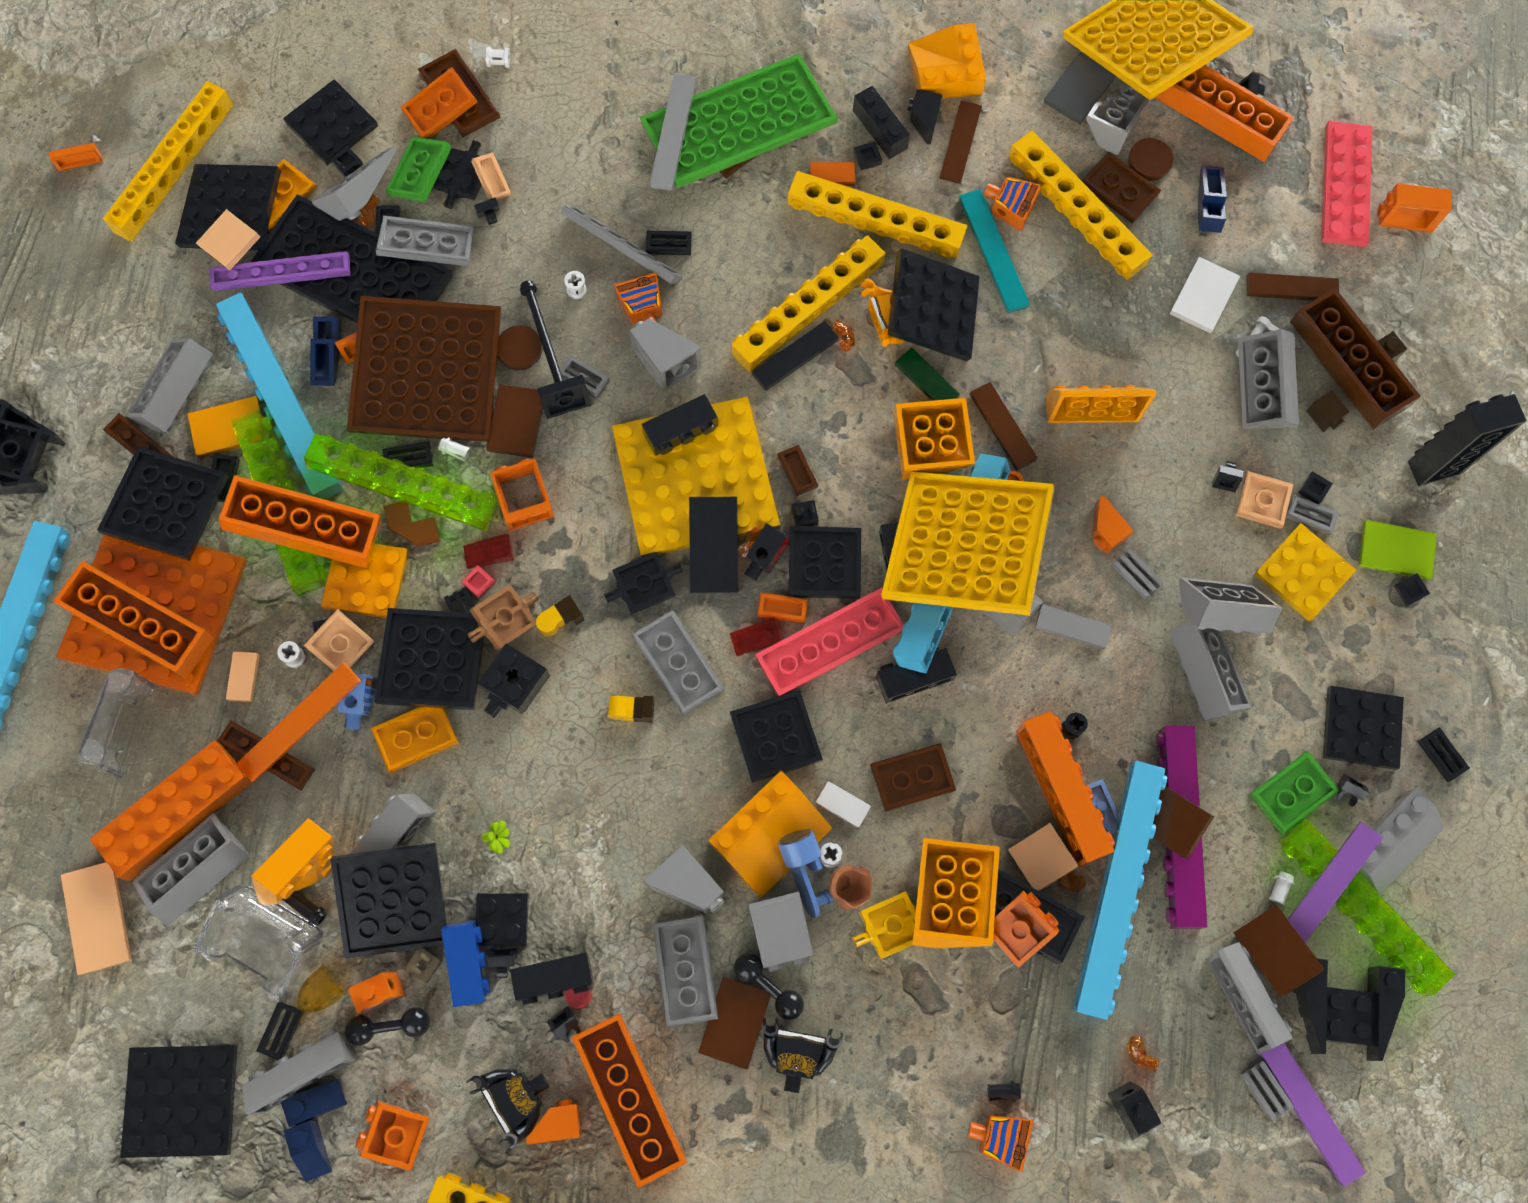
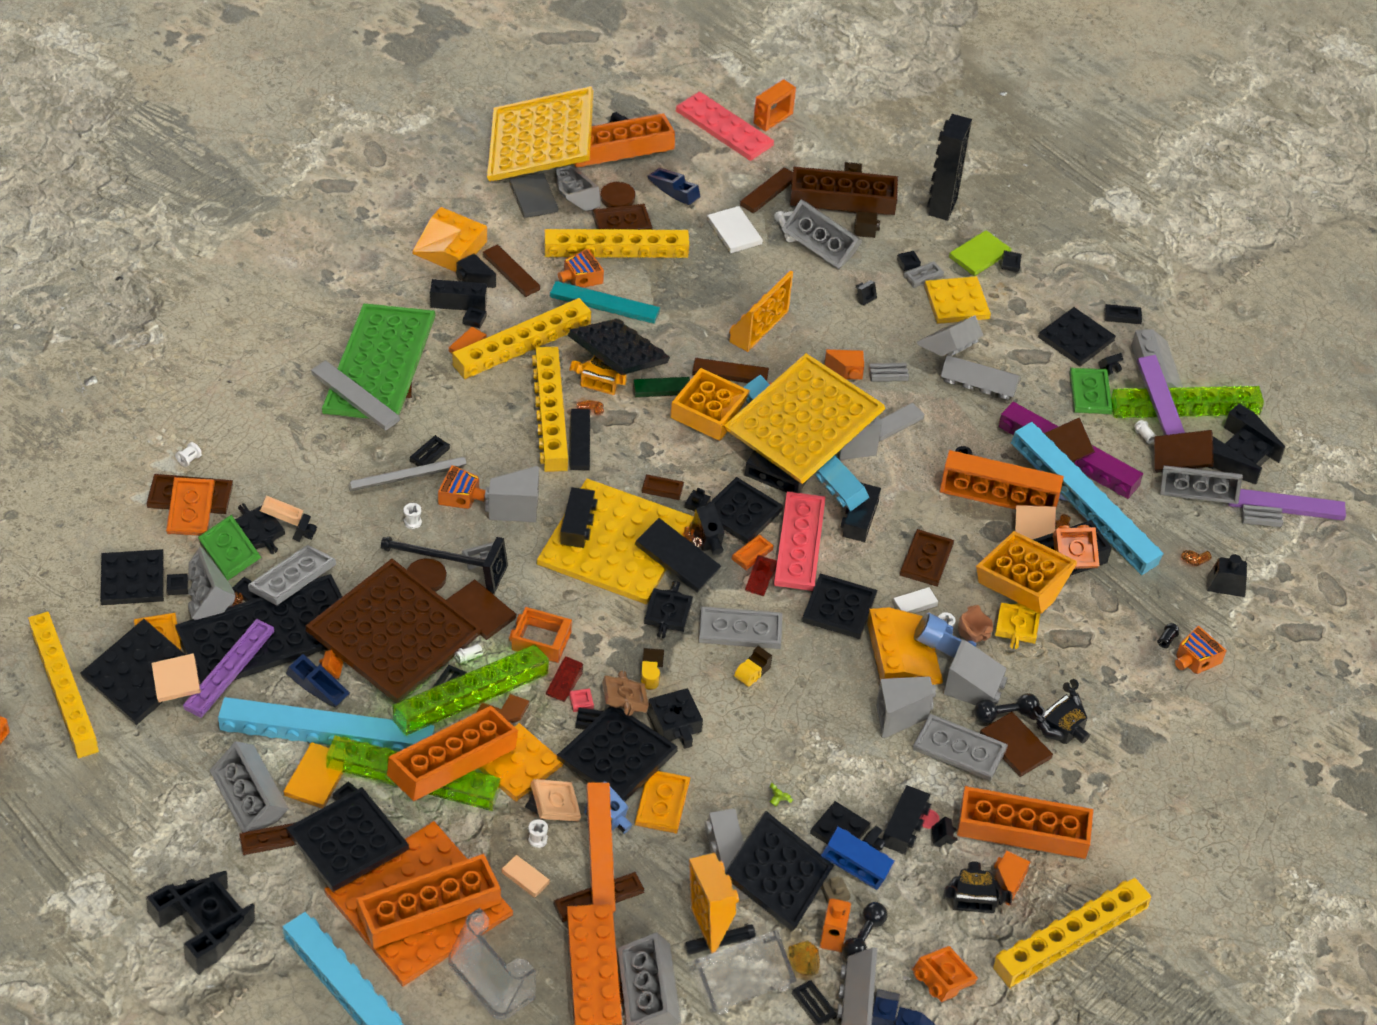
camera: 55 degrees left, 25 degrees down
(1264, 500) = (895, 288): light nougat tile -> none

